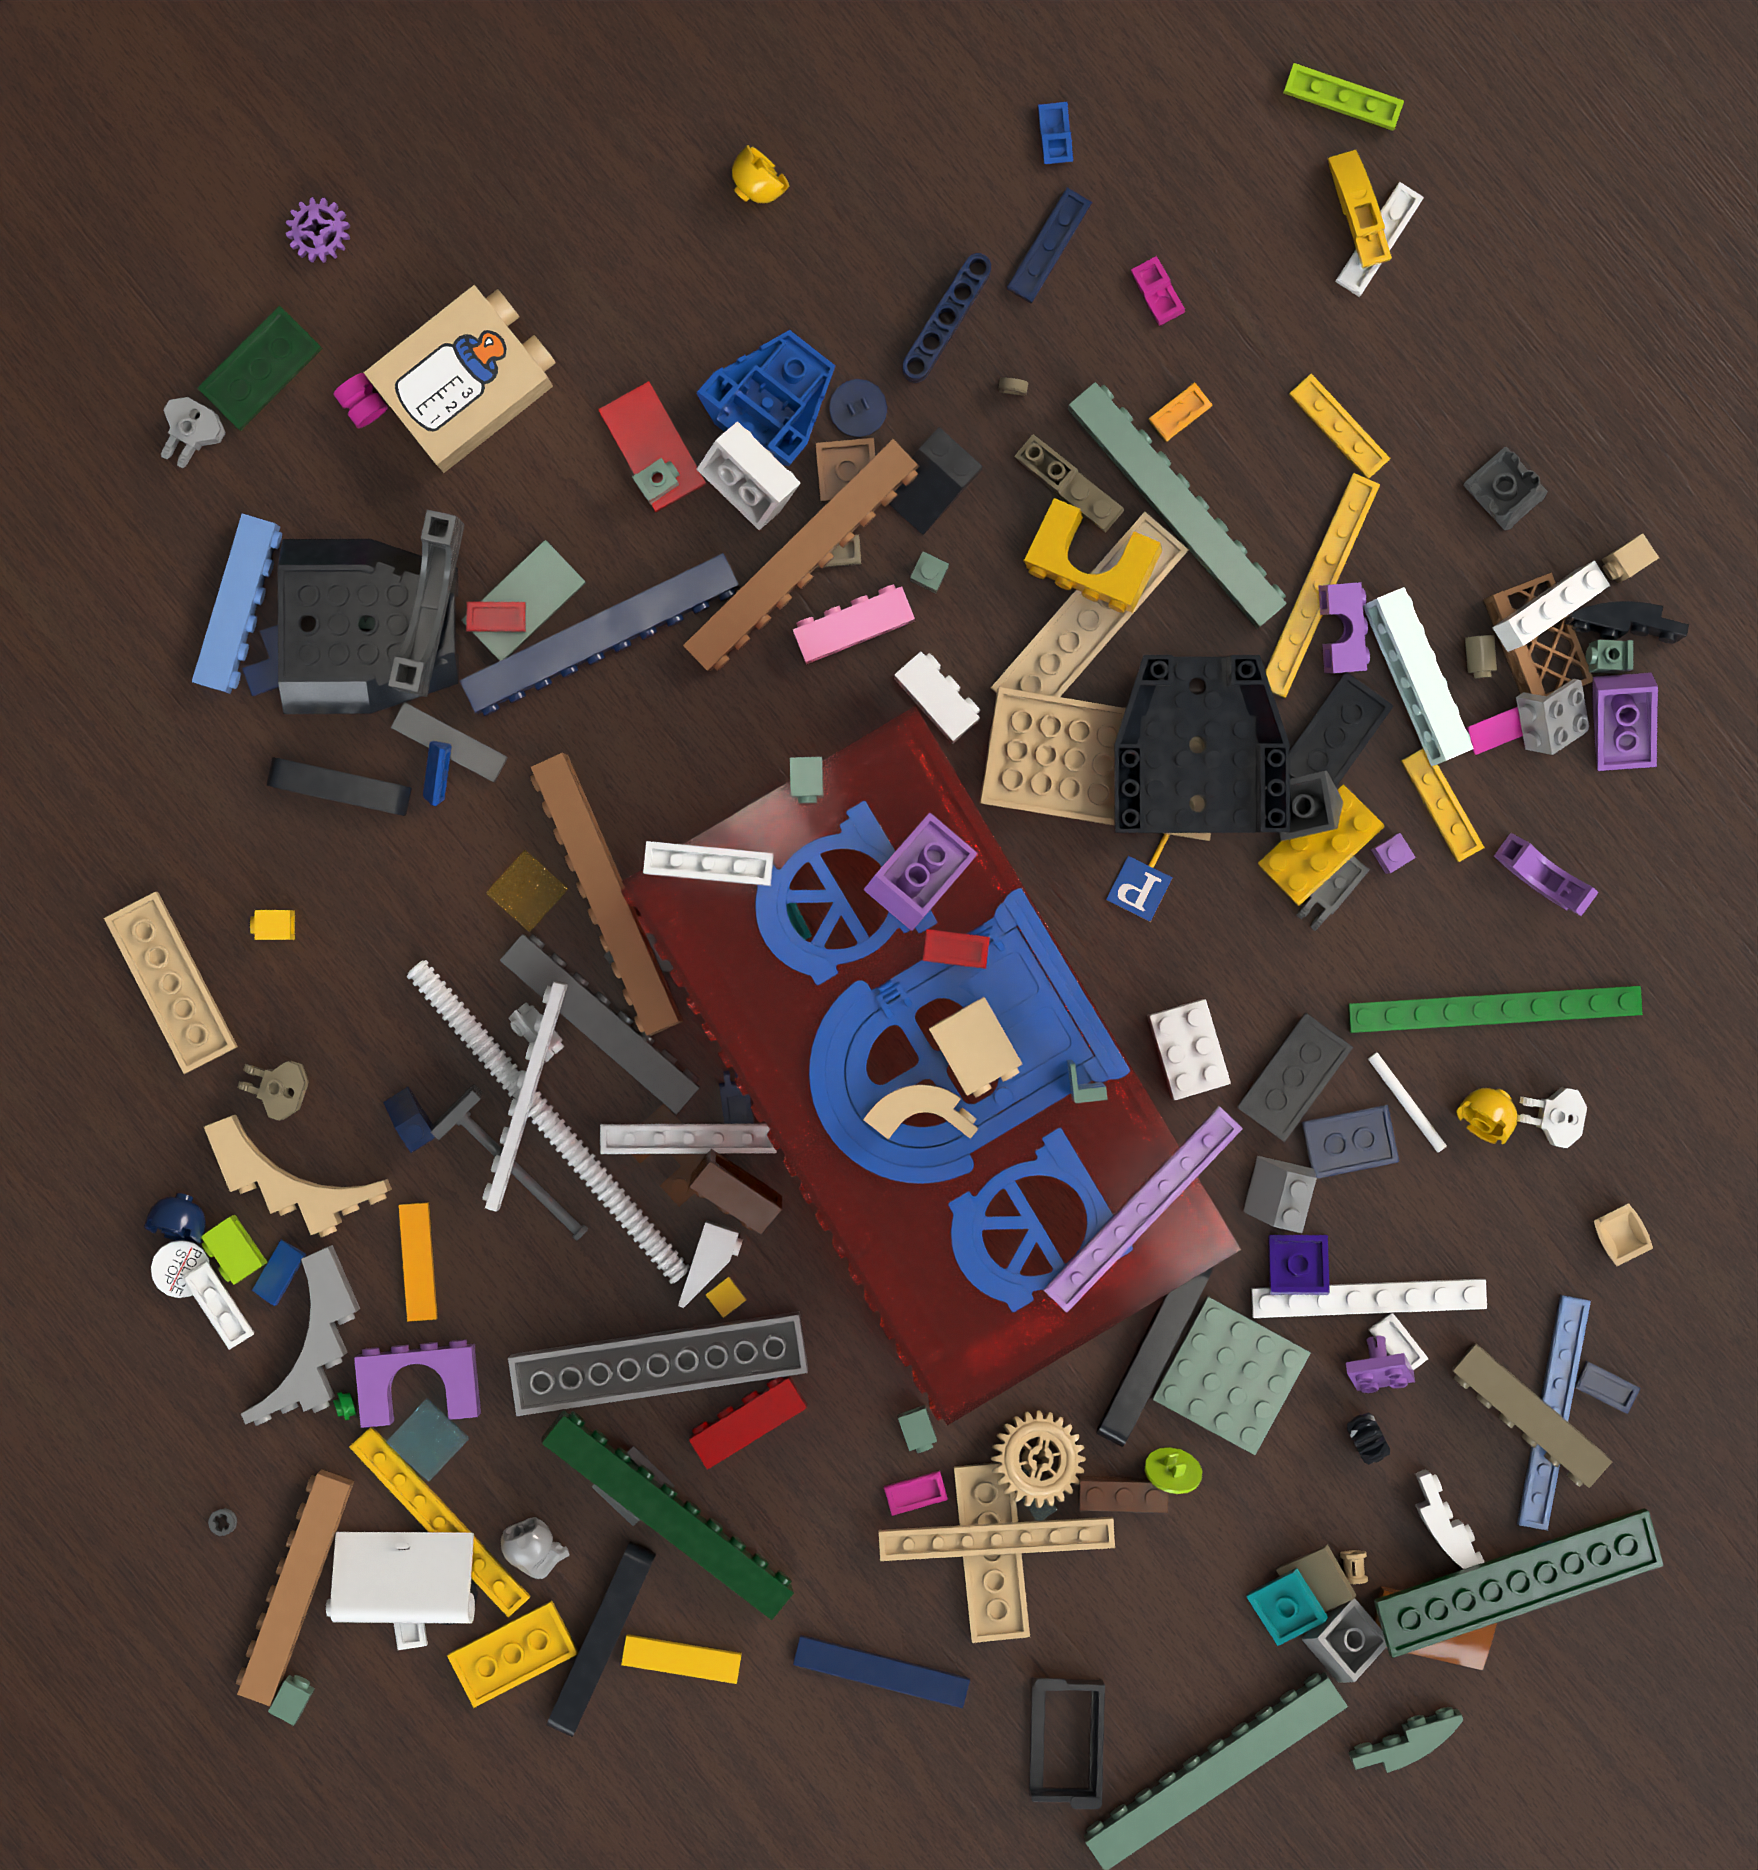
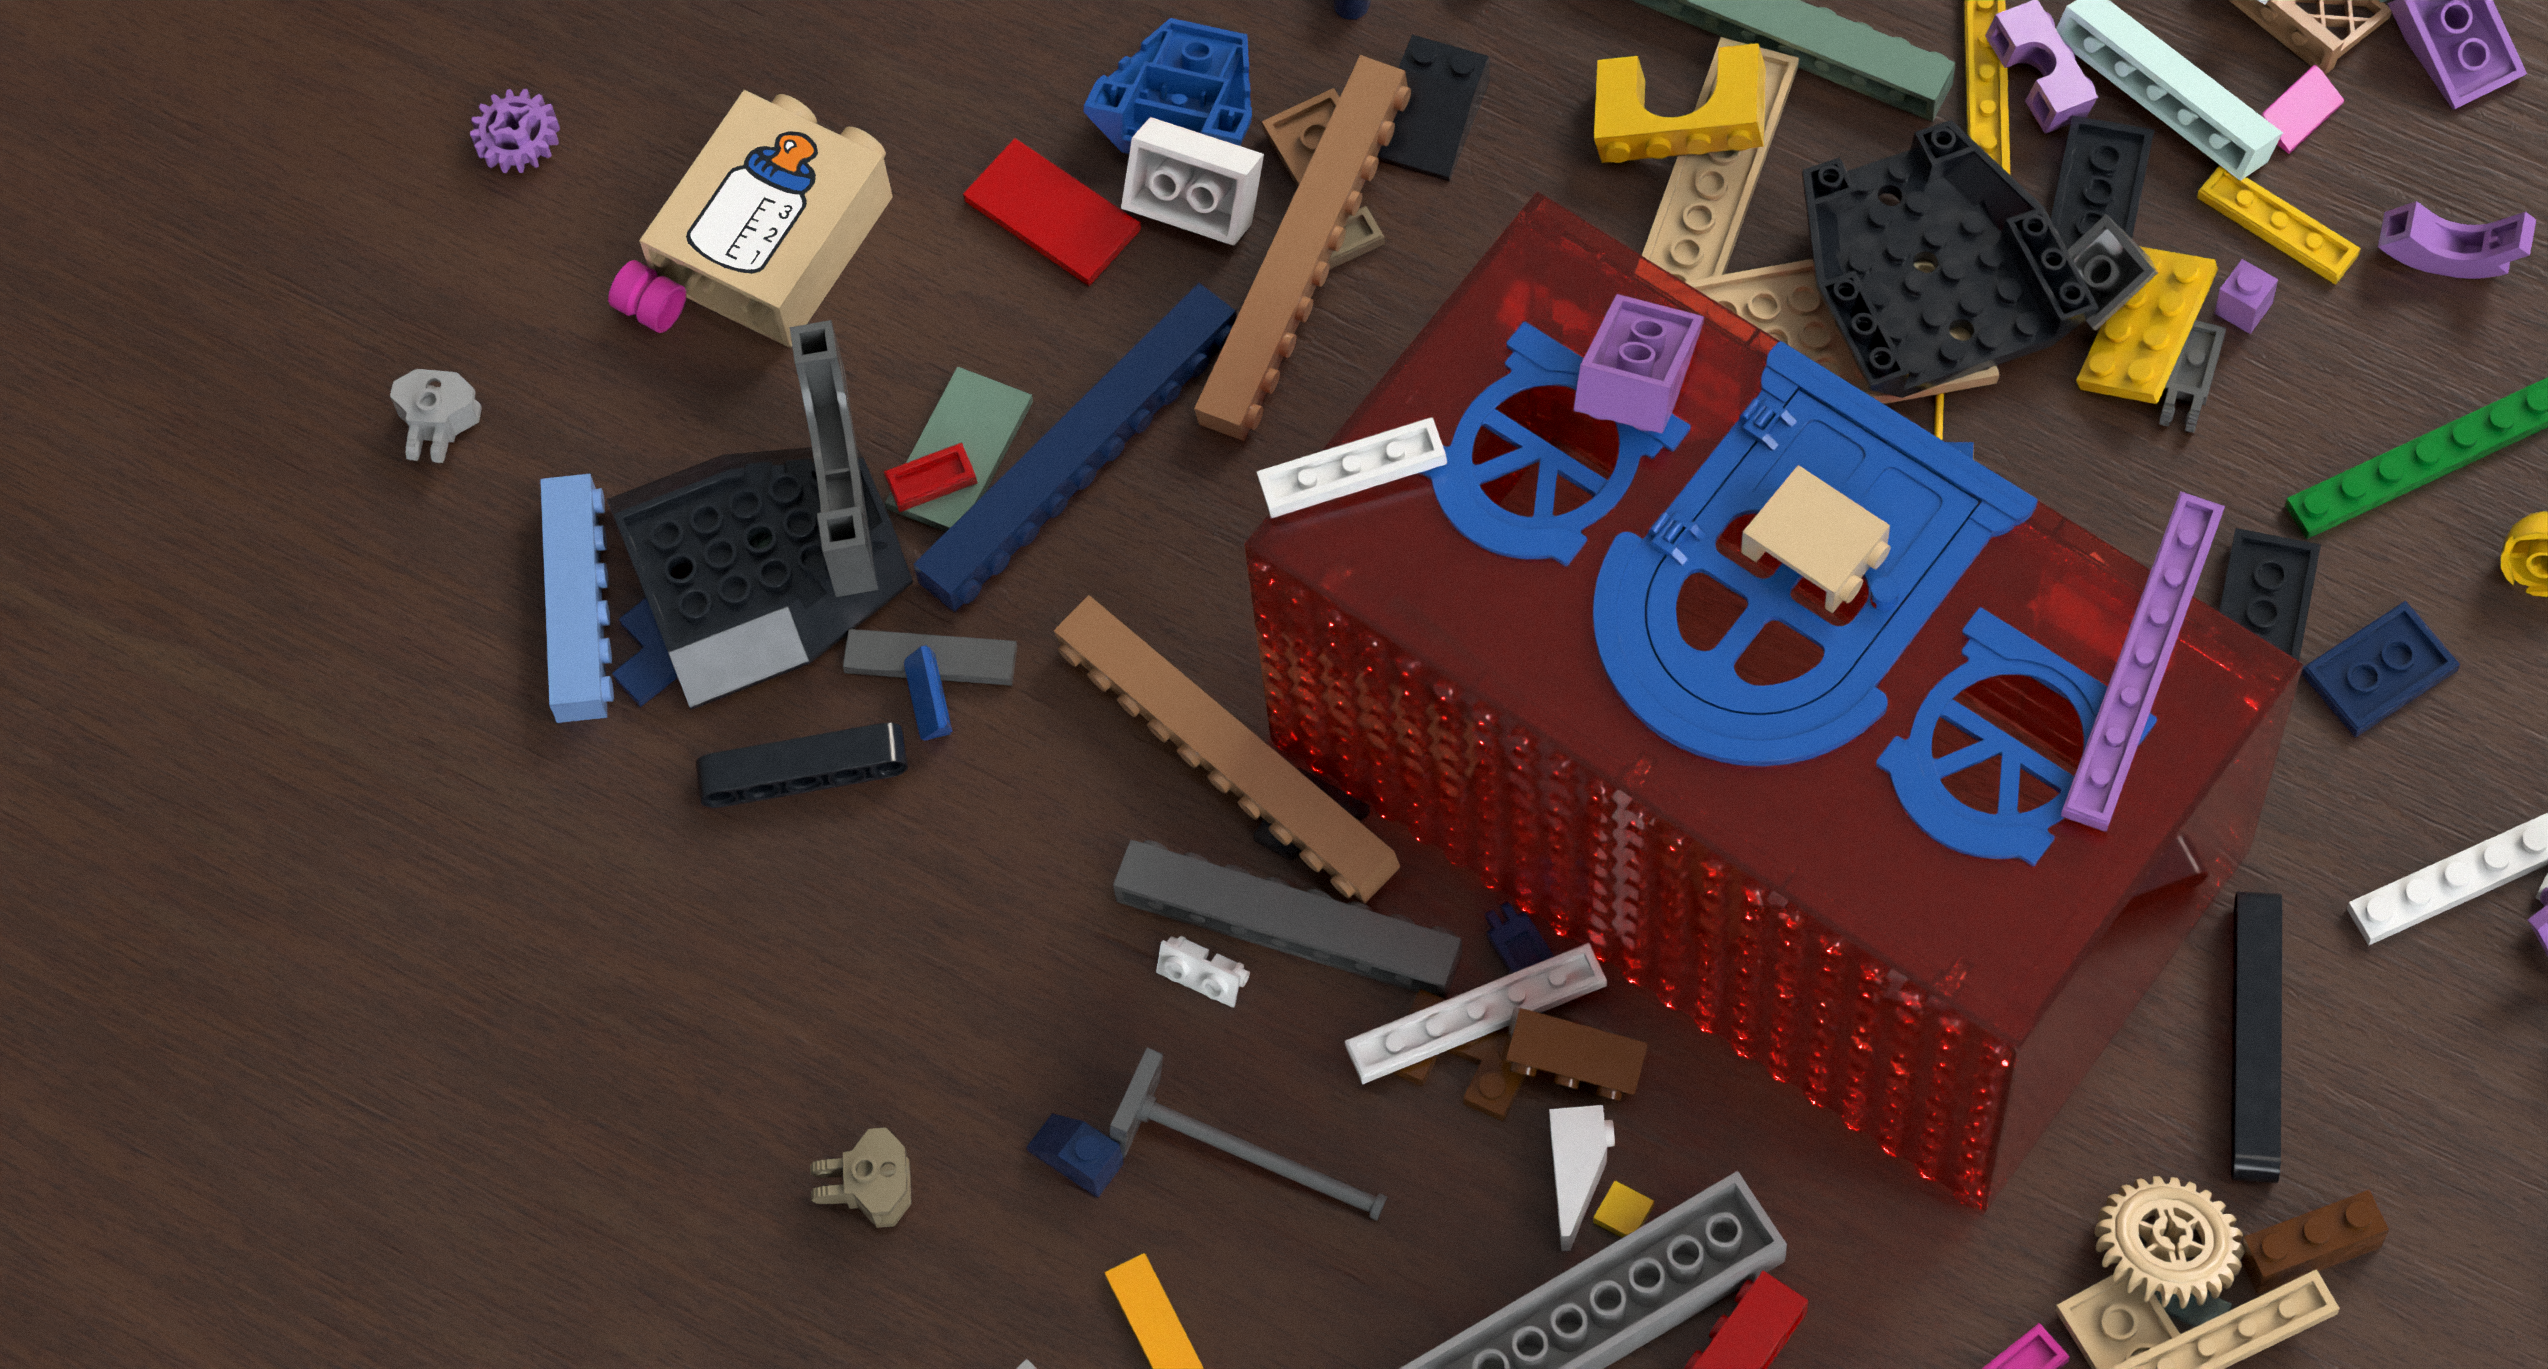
camera: 15 degrees left, 25 degrees down
(170, 982) = (664, 1106): tan plate -> none
(260, 368) = (500, 313): dark green plate -> none
(273, 924) = (779, 972): yellow brick -> none
(319, 1204) = (933, 1316): tan arch -> none
(520, 1107) = (1222, 1053): white plate -> none
(527, 890) = (1113, 798): clear yellow tile -> none
(549, 1122) = (1273, 1077): white piece -> none
(654, 491) = (1071, 246): sand green brick -> none
(806, 779) = (1435, 317): sand green brick -> none
(854, 624) = (1403, 306): bright pink brick -> none
(858, 408) = (1297, 70): dark blue piece -> none
(915, 1099) = (1775, 633): tan arch -> none
(917, 1429) = (1979, 1274): sand green brick -> none
(929, 572) = (1478, 209): sand green brick -> none
(956, 948) = (1731, 436): red tile -> none
(1068, 483) = (1592, 37): dark tan slope -> none
(1085, 1092) = (1985, 498): sand green panel -> none
(1173, 1470) = (2366, 1175): lime piece -> none
(1231, 1375) = (2380, 1030): sand green plate -> none
(1280, 1193) = (2324, 761): light grey slope -> none
(1298, 1265) = (2395, 844): dark purple tile -> none
(1407, 1102) = (2429, 590): white bar -> none
(1481, 655) = (2233, 33): dark tan brick -> none
(1553, 719) = (2362, 61): light grey bracket -> none

